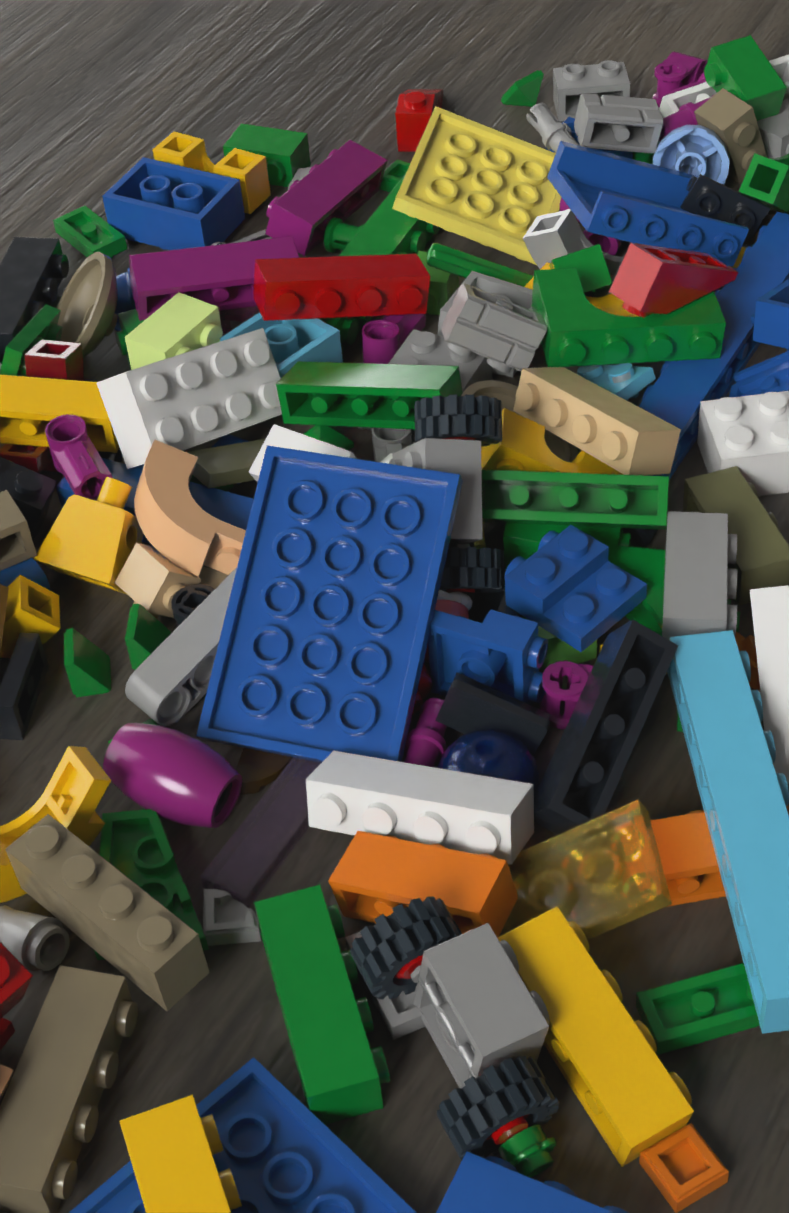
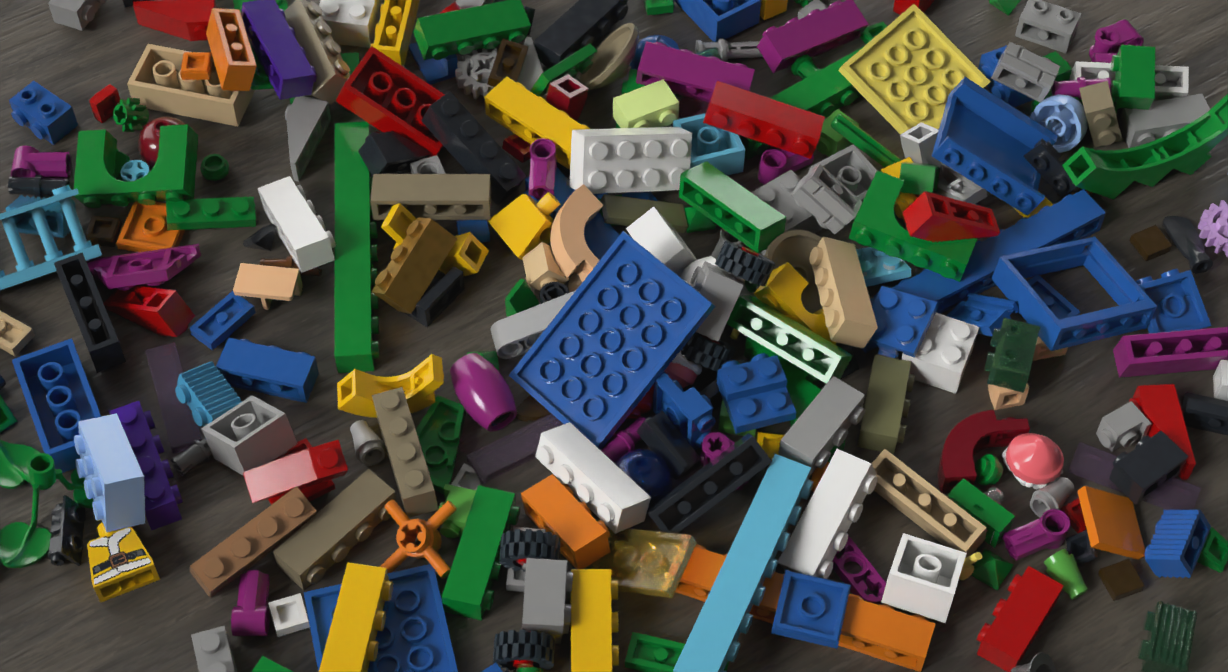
camera: 25 degrees right, 10 degrees up
(86, 665) = (481, 300): green slope -> none
(186, 1020) = (425, 532): none -> orange bar
(240, 960) = (463, 500): none -> bright green brick
(549, 127) = (984, 60): light grey pin -> none
(705, 418) = (901, 321): none -> blue piece

